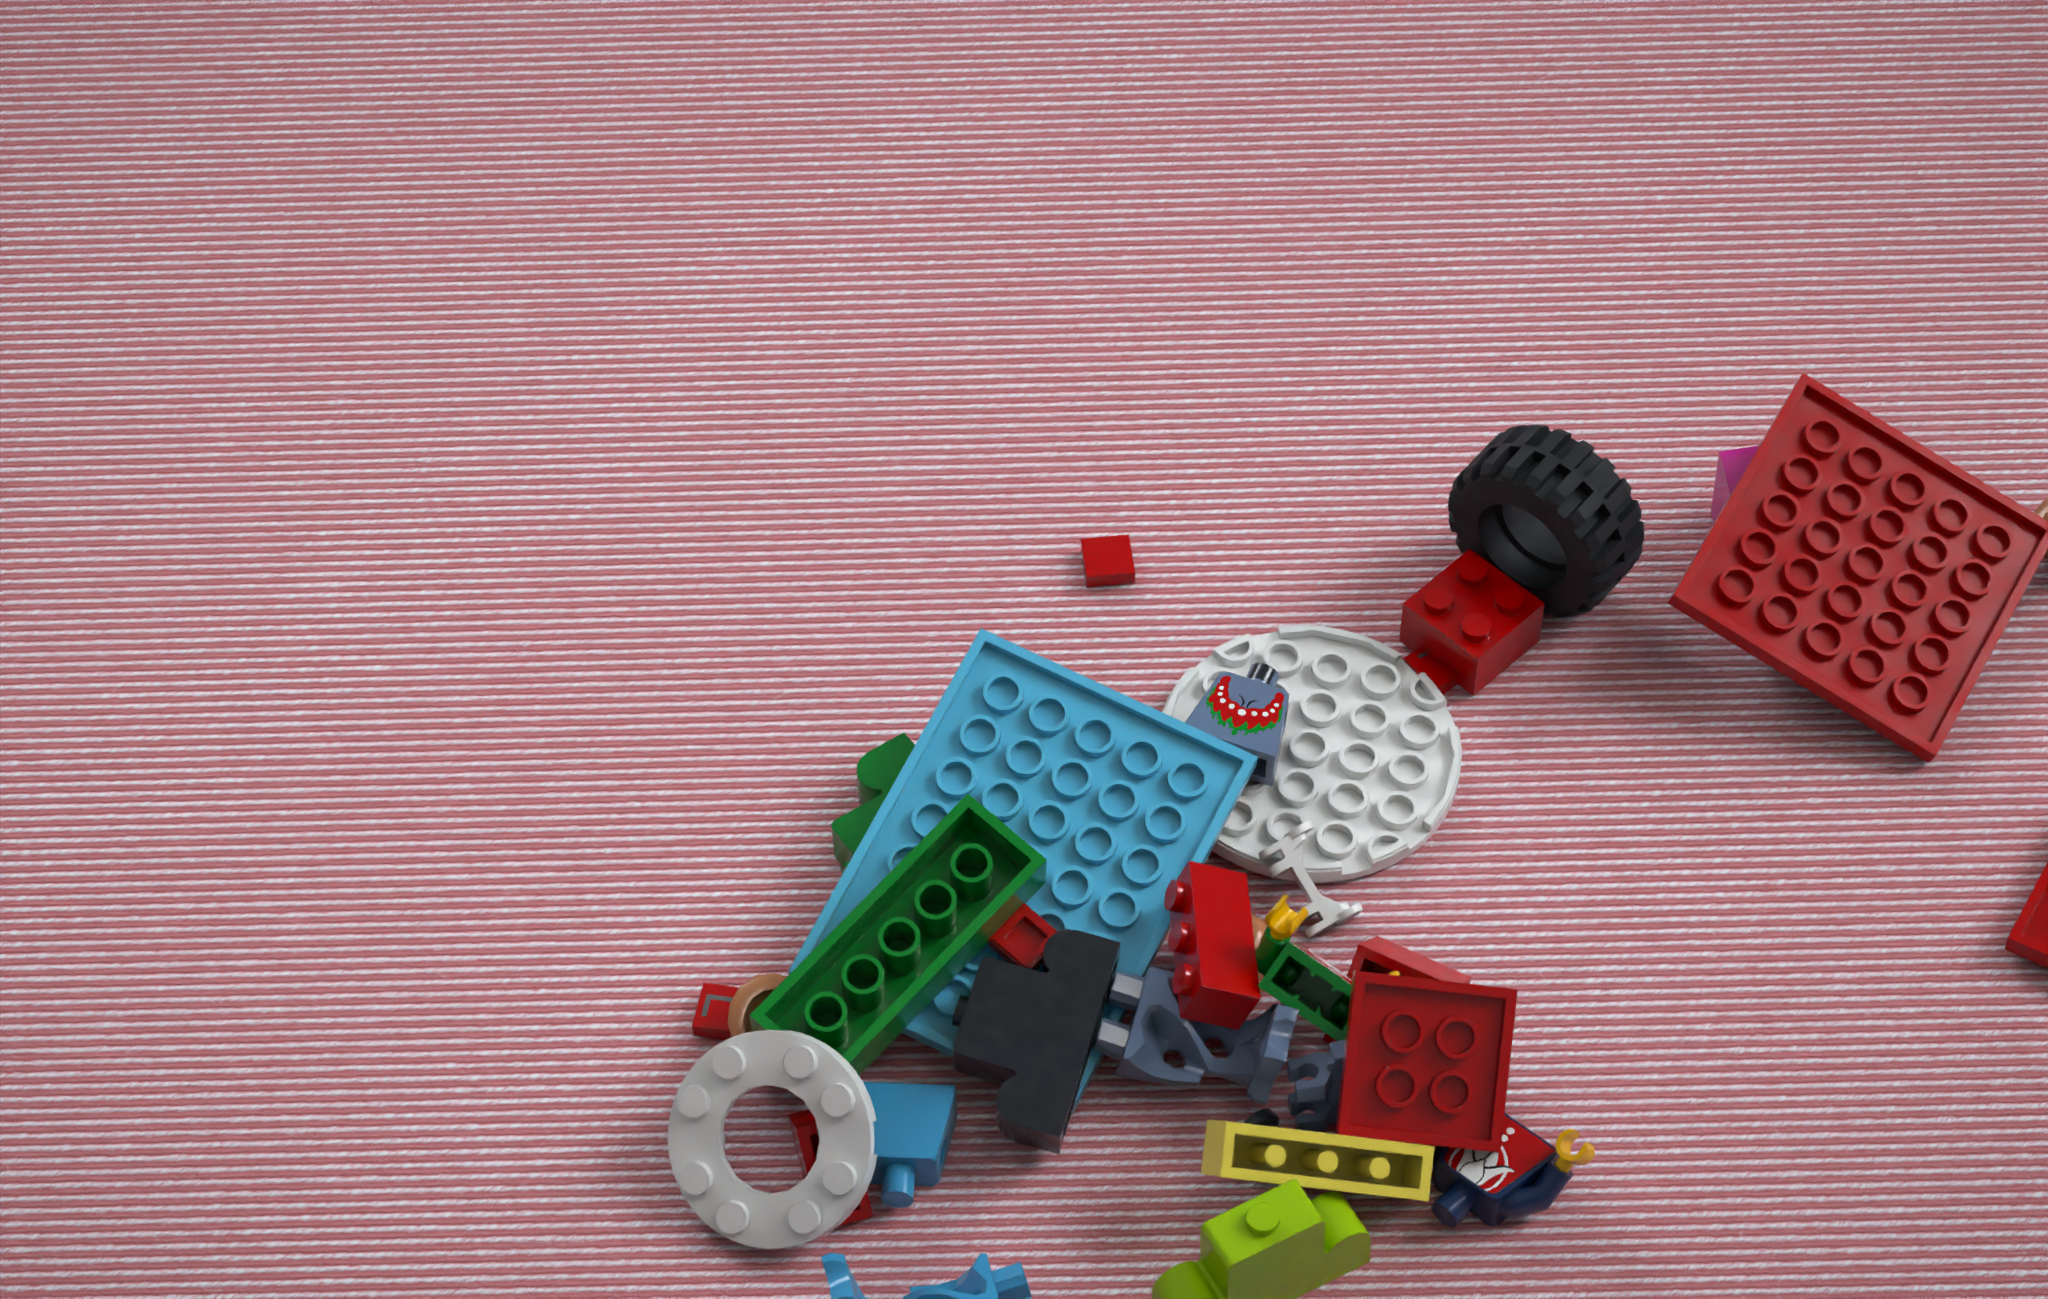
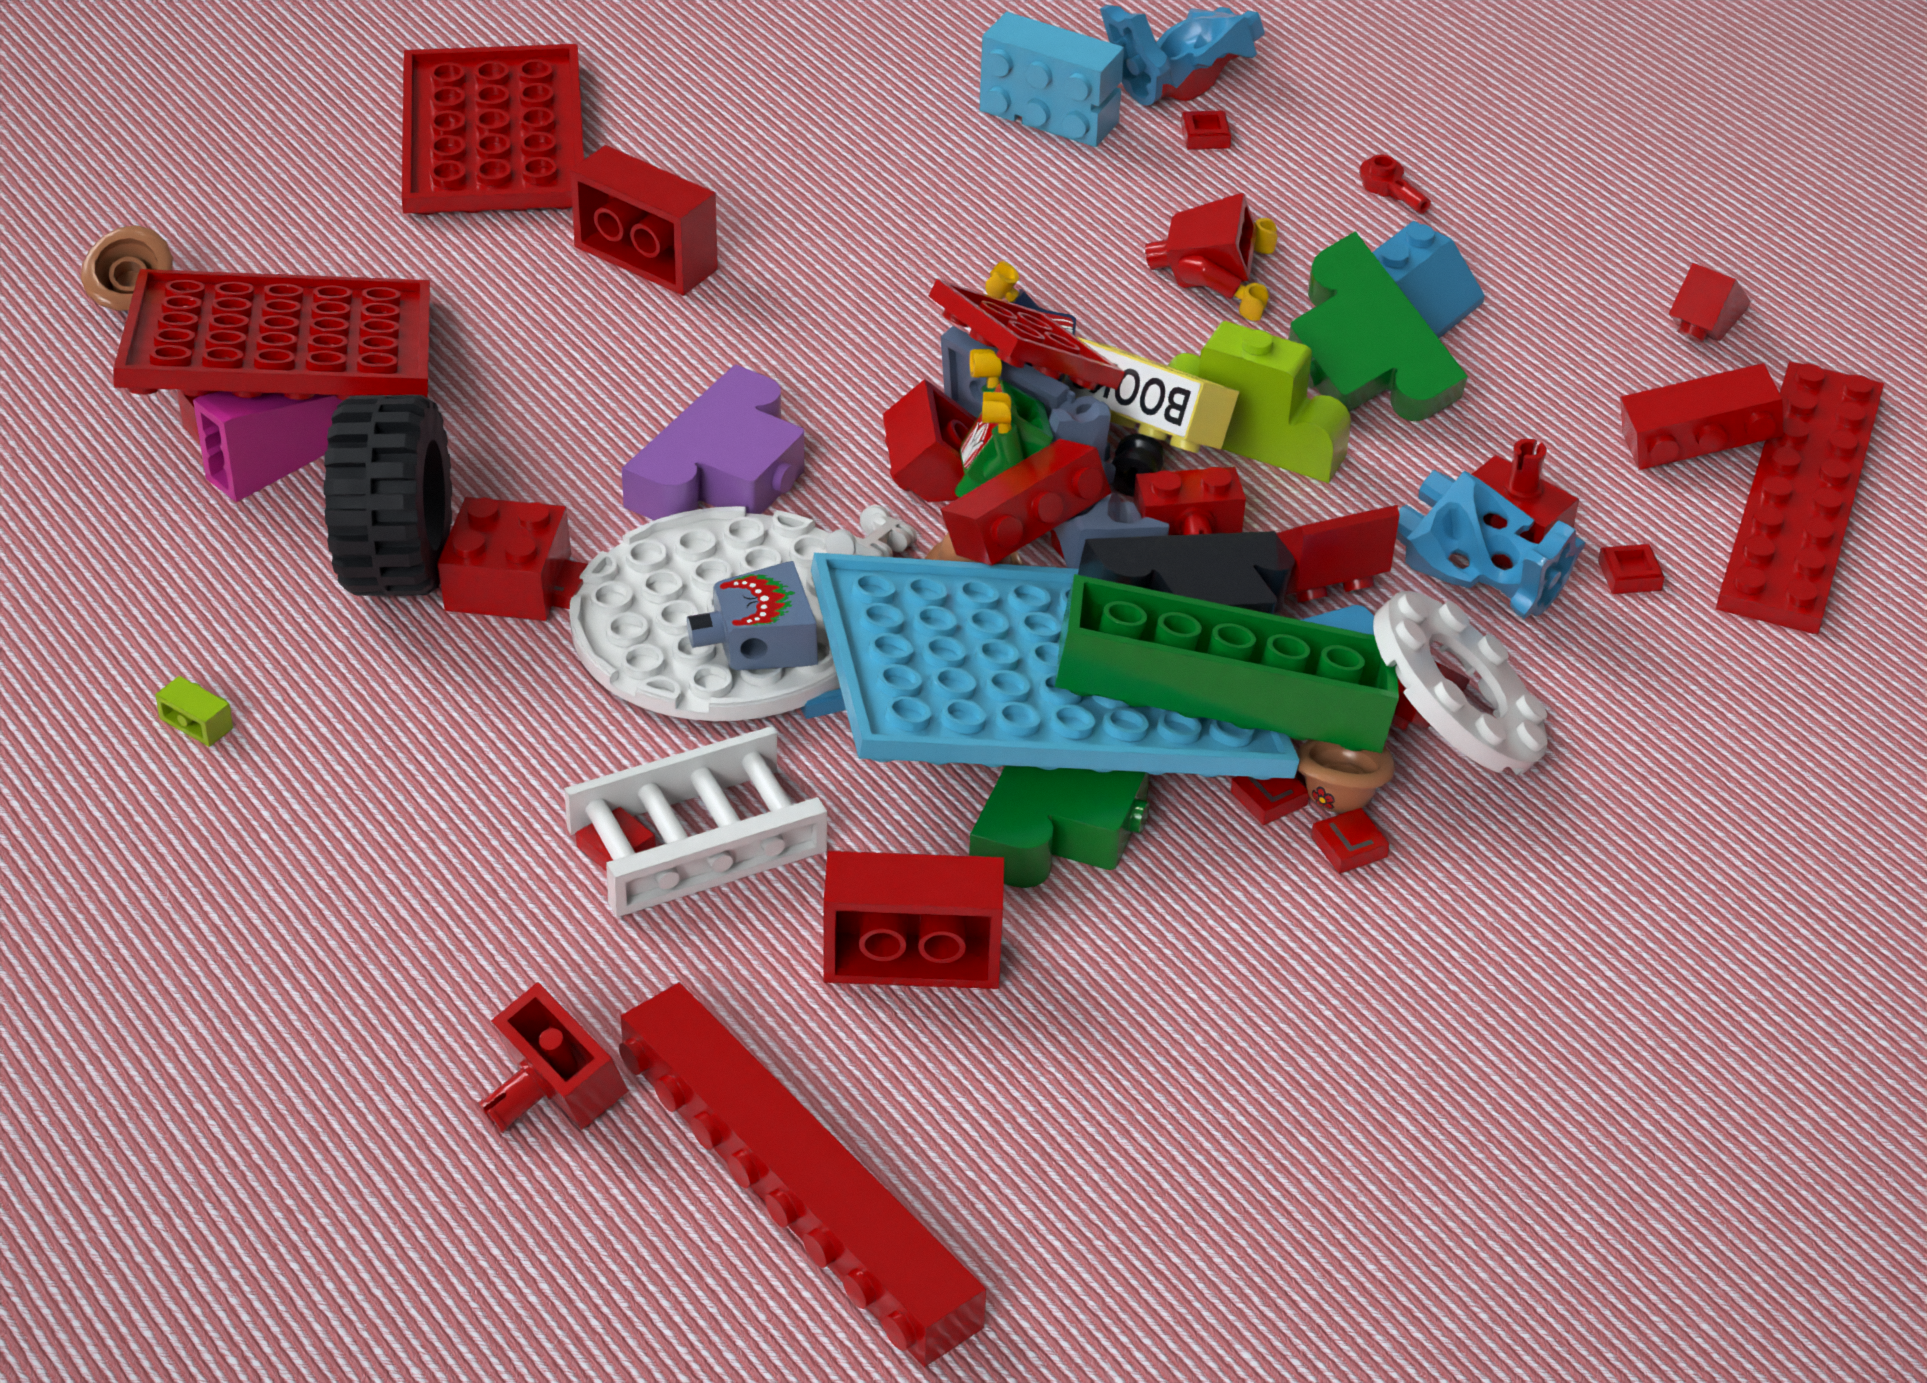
camera: 130 degrees left, 10 degrees down
(712, 497) = (803, 1175): none -> red brick
(850, 651) = (912, 919): none -> red brick
(903, 408) = (554, 1063): none -> red brick
(1019, 1182) = (1341, 551): none -> red slope
(1040, 577) = (707, 858): none -> white fence
(1164, 1132) = (1192, 500): none -> red brick
(1444, 377) = (194, 711): none -> lime piece
(1515, 845) = (719, 451): none -> medium lavender brick
(1898, 936) = (644, 219): none -> red brick

